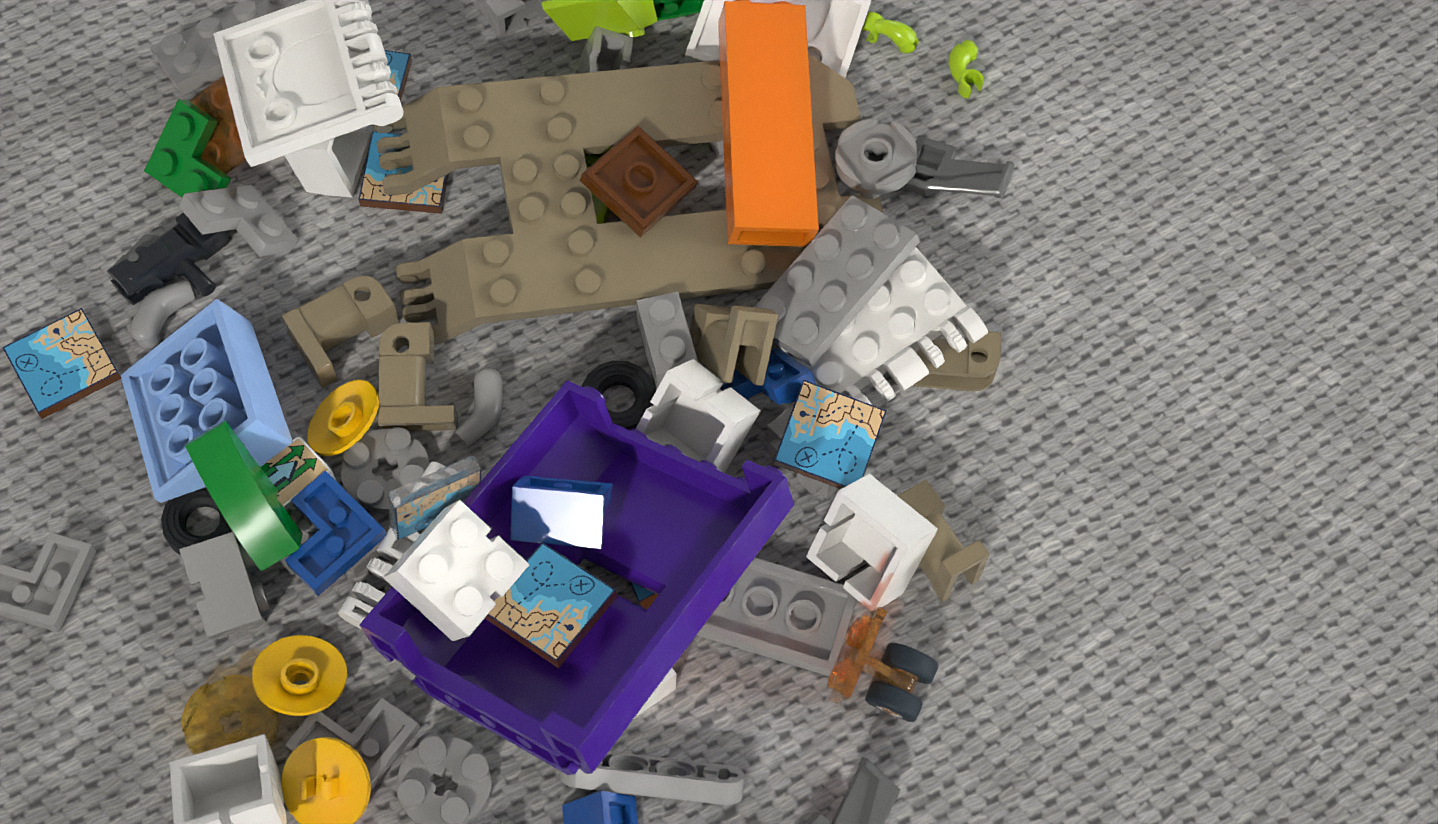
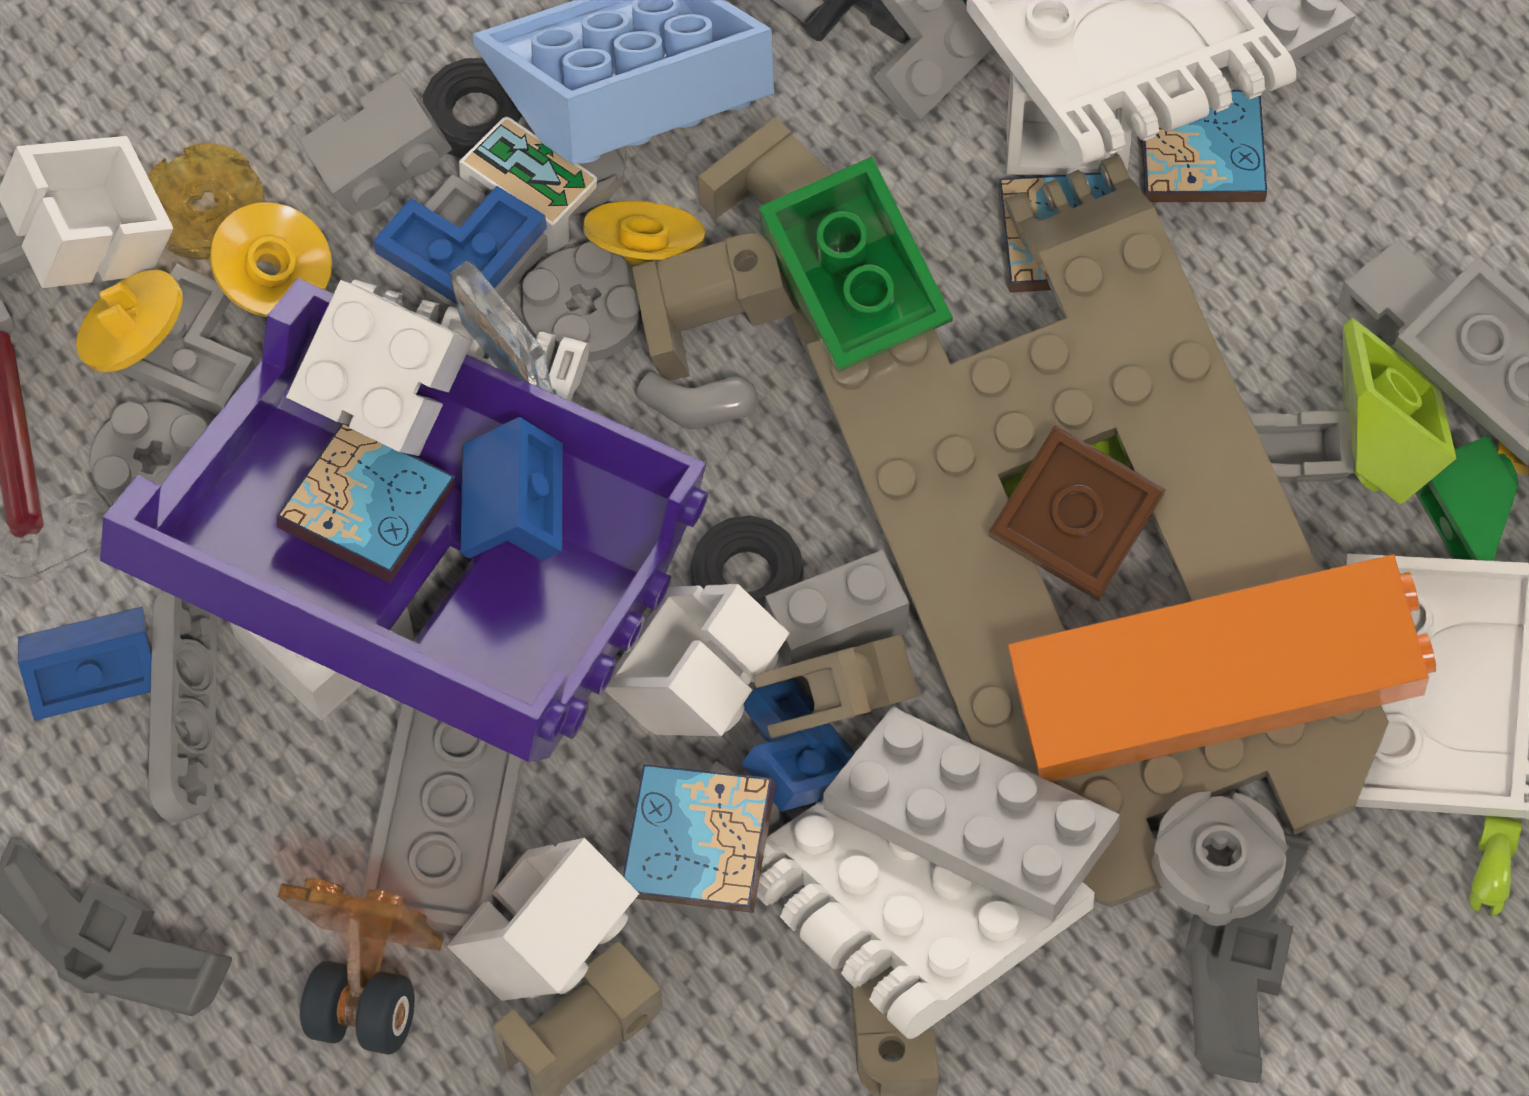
camera: 85 degrees right, 0 degrees up
(244, 496) = (477, 125): green slope -> none
(431, 271) = (853, 264): none -> green slope
(958, 60) = (1464, 980): lime arm -> none

